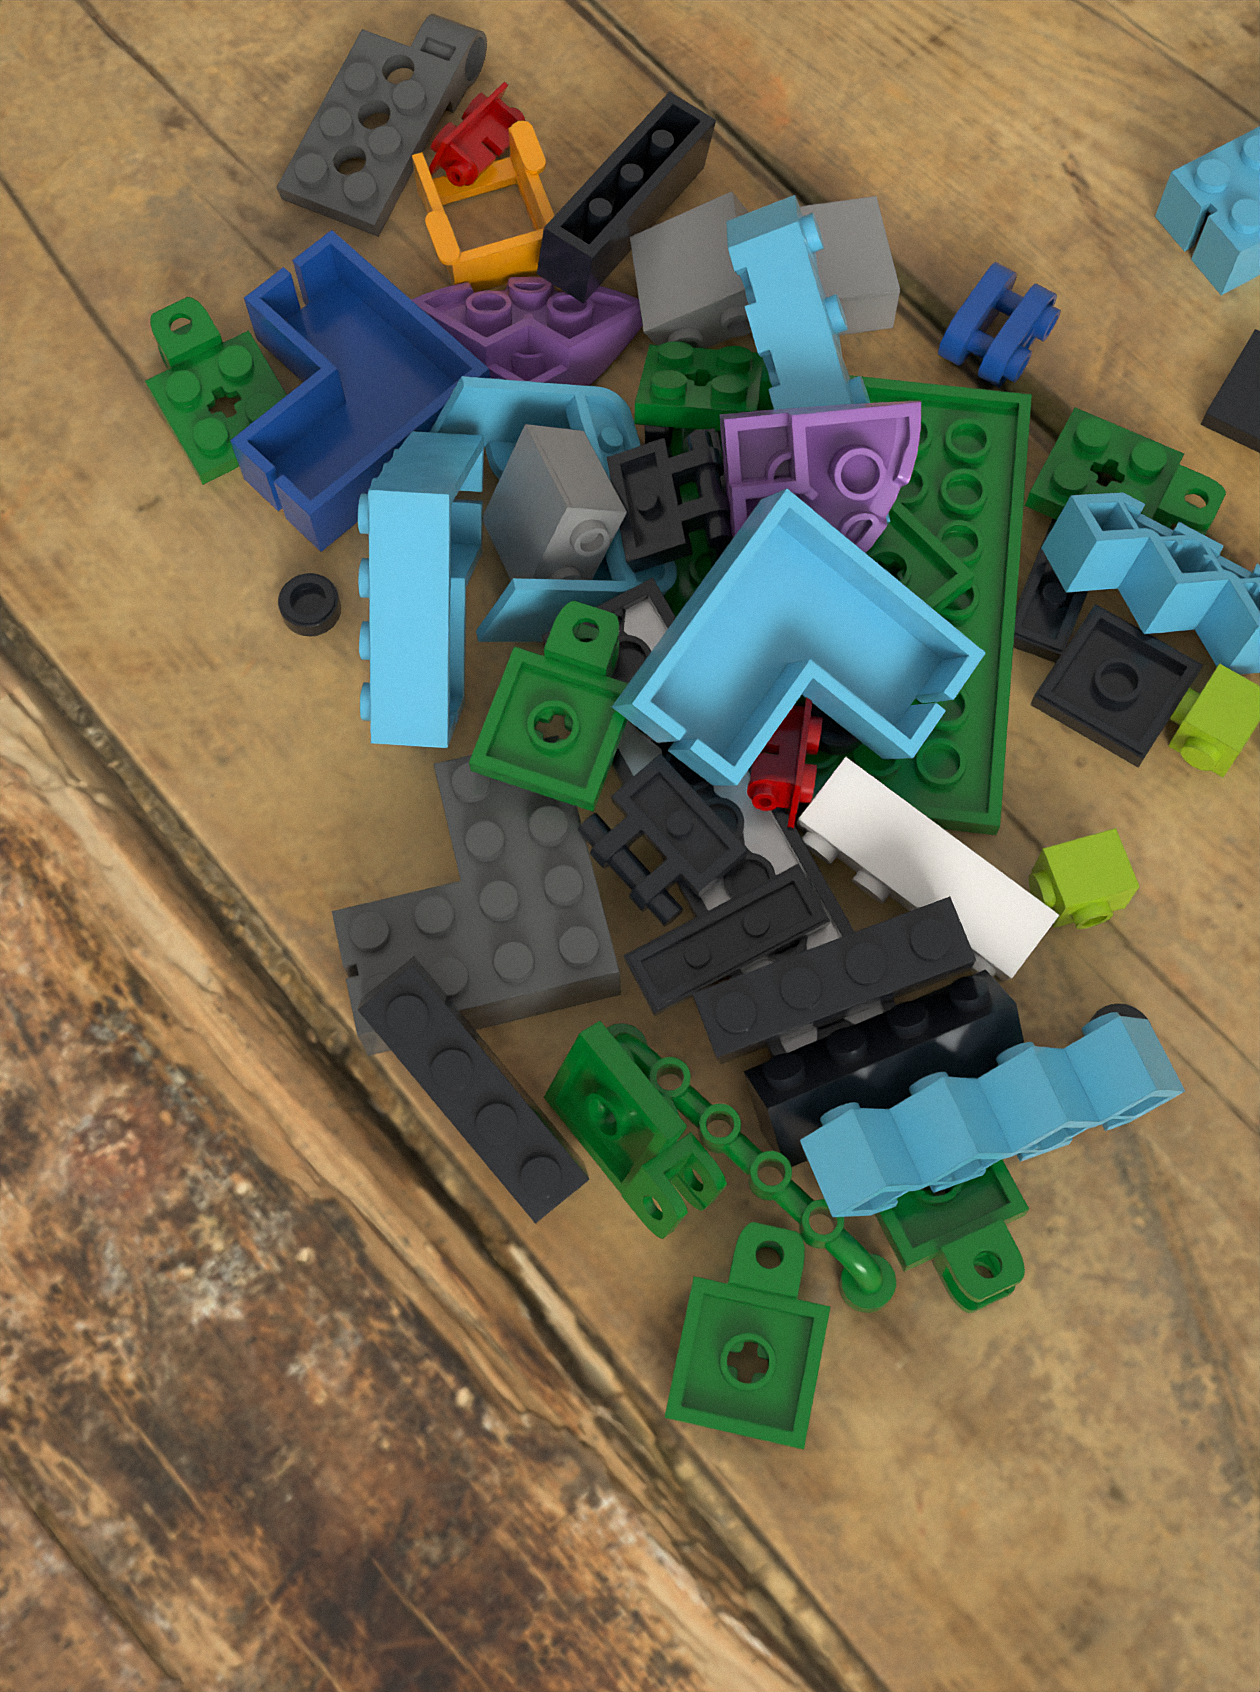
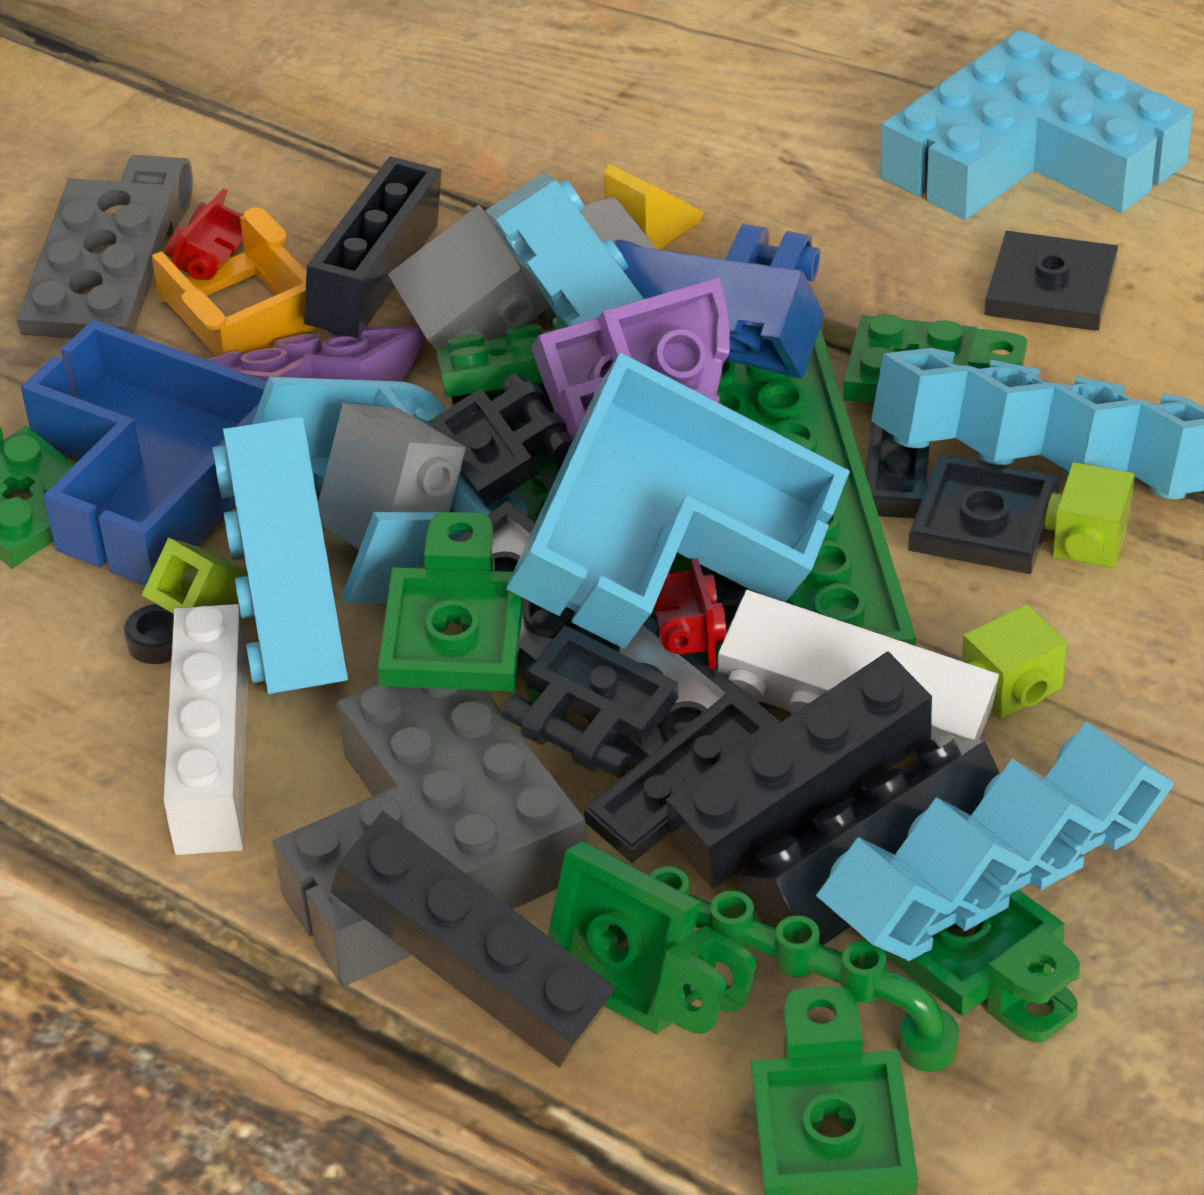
camera: 15 degrees left, 25 degrees down
(313, 749) = (207, 730): none -> white brick
(333, 574) = (192, 578): none -> lime brick
(902, 365) = (768, 307): none -> blue wedge
(912, 208) = (653, 209): none -> yellow slope

